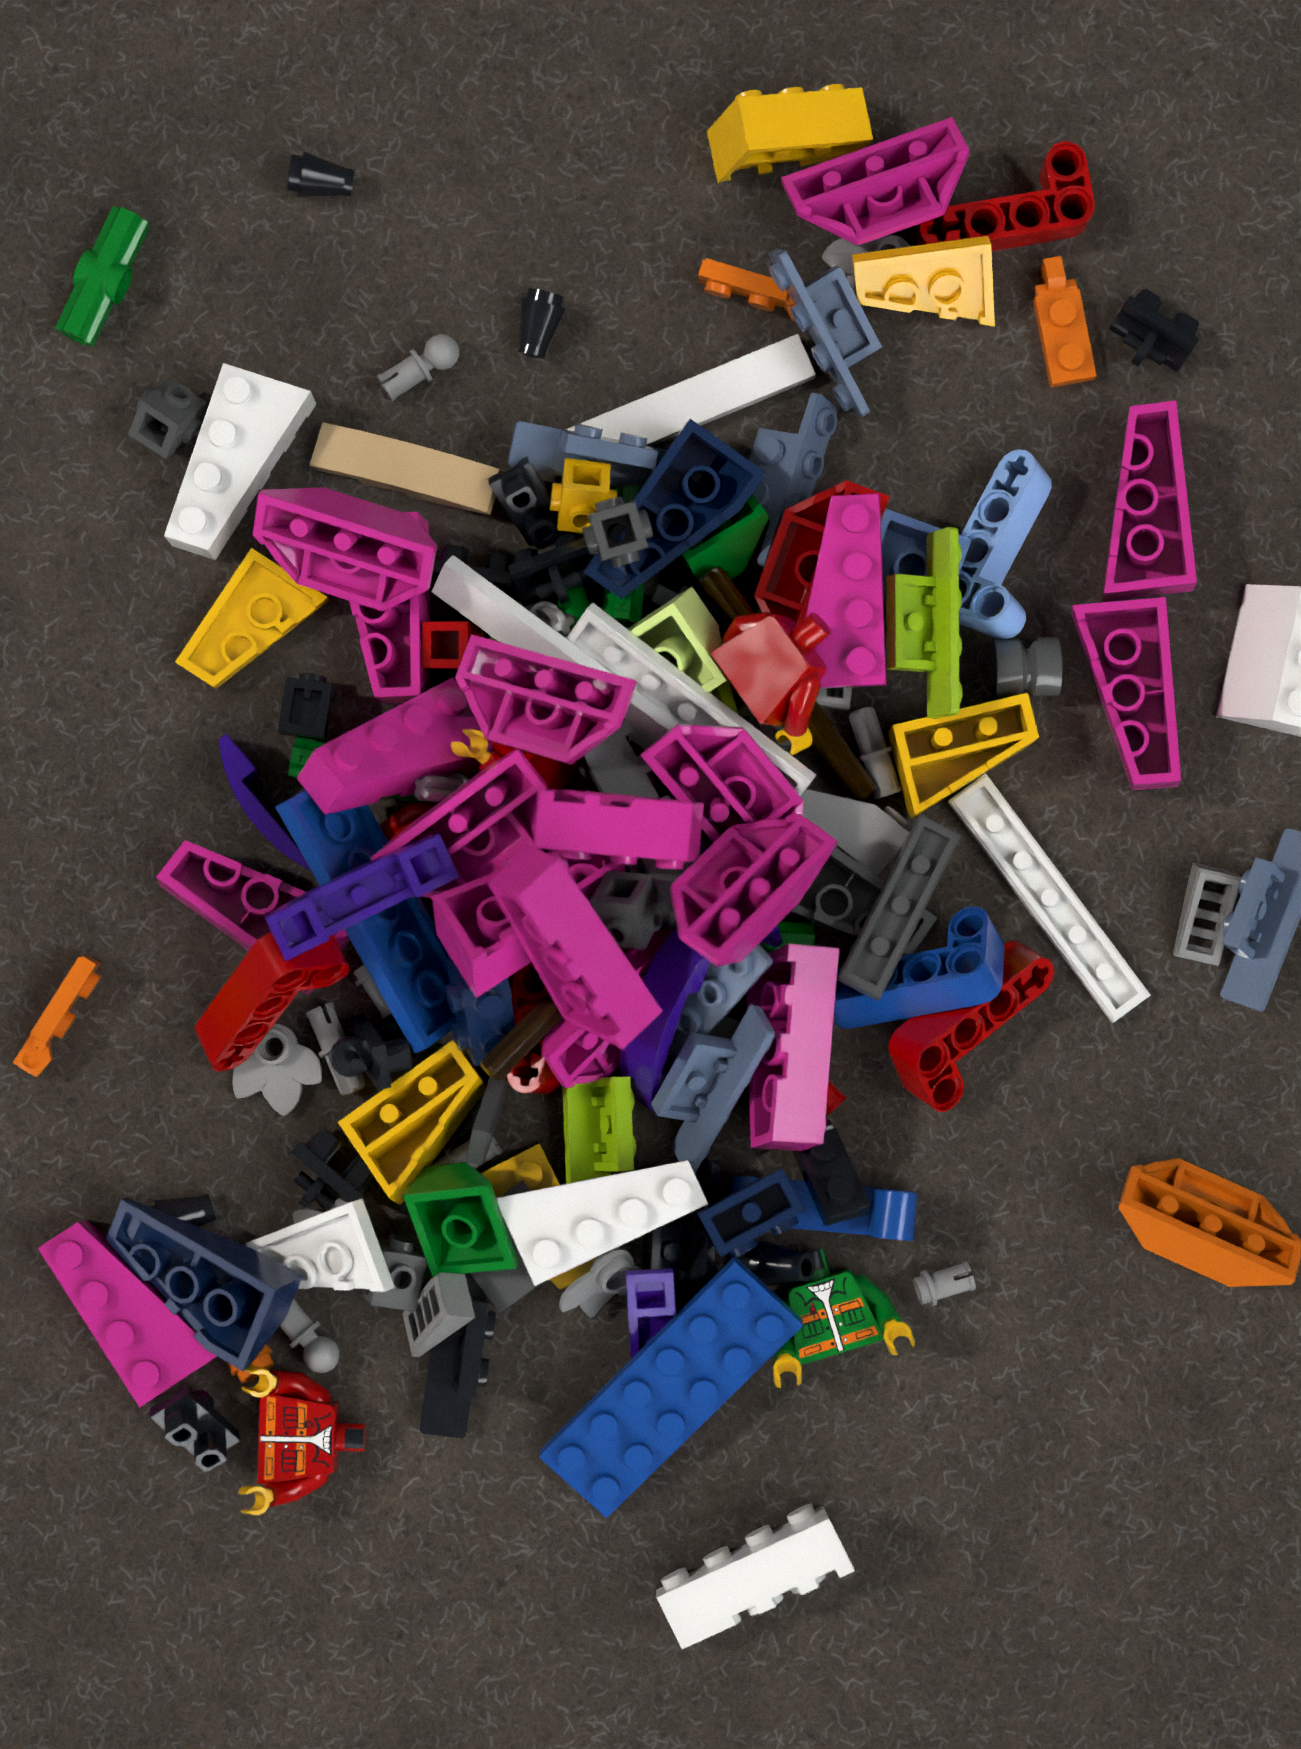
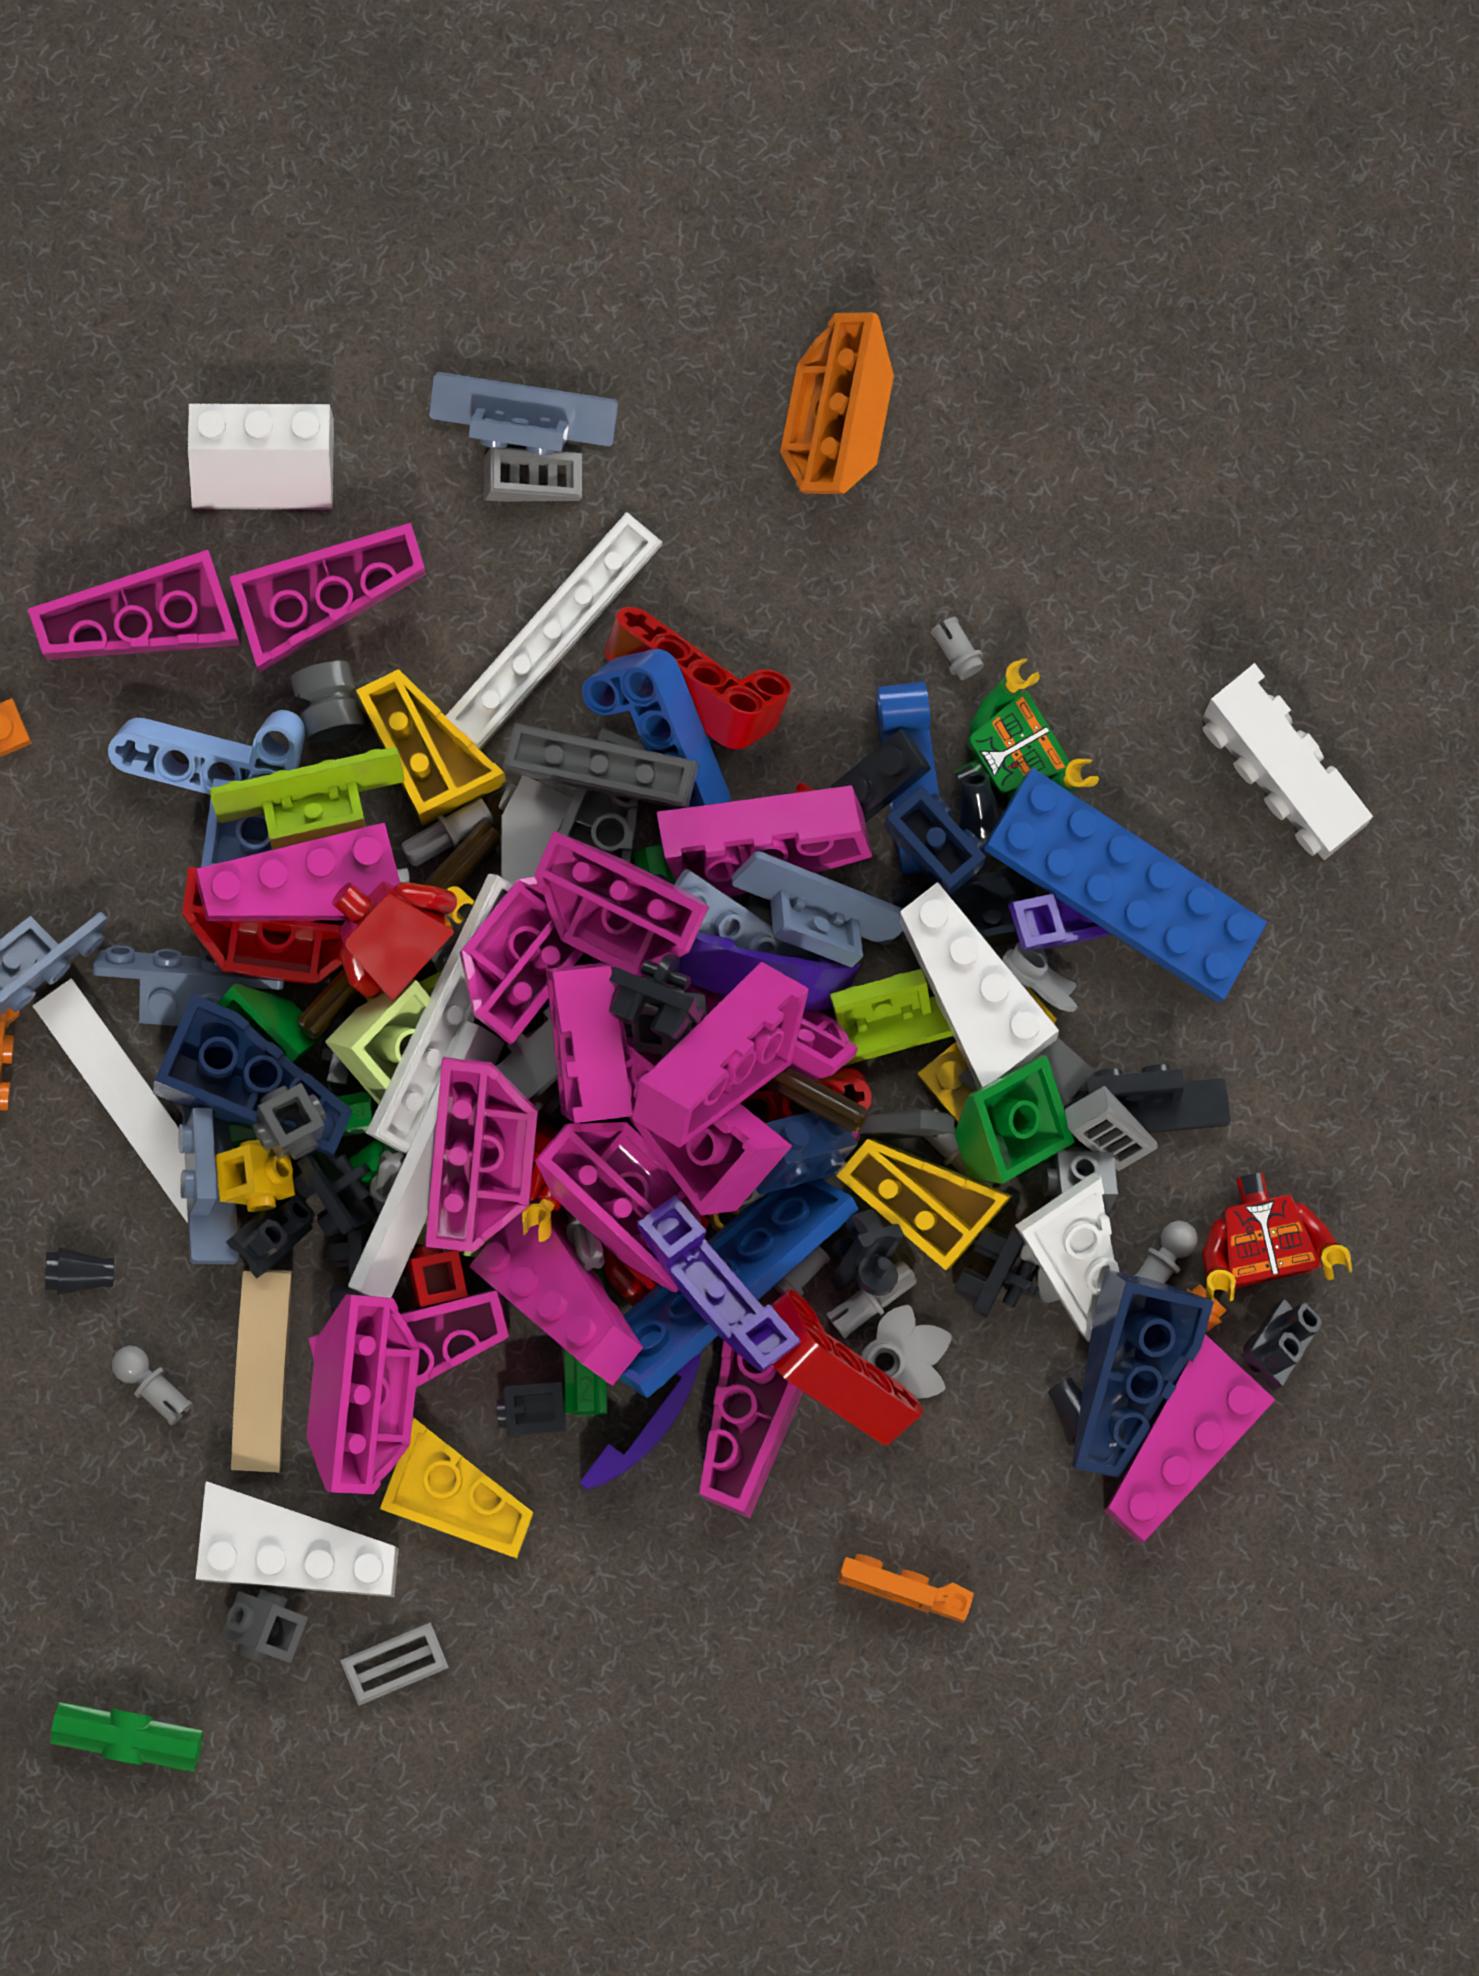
camera: 100 degrees left, 5 degrees down
(116, 569) = (356, 1680): none -> light grey tile
(650, 874) = (635, 991): none -> black hips

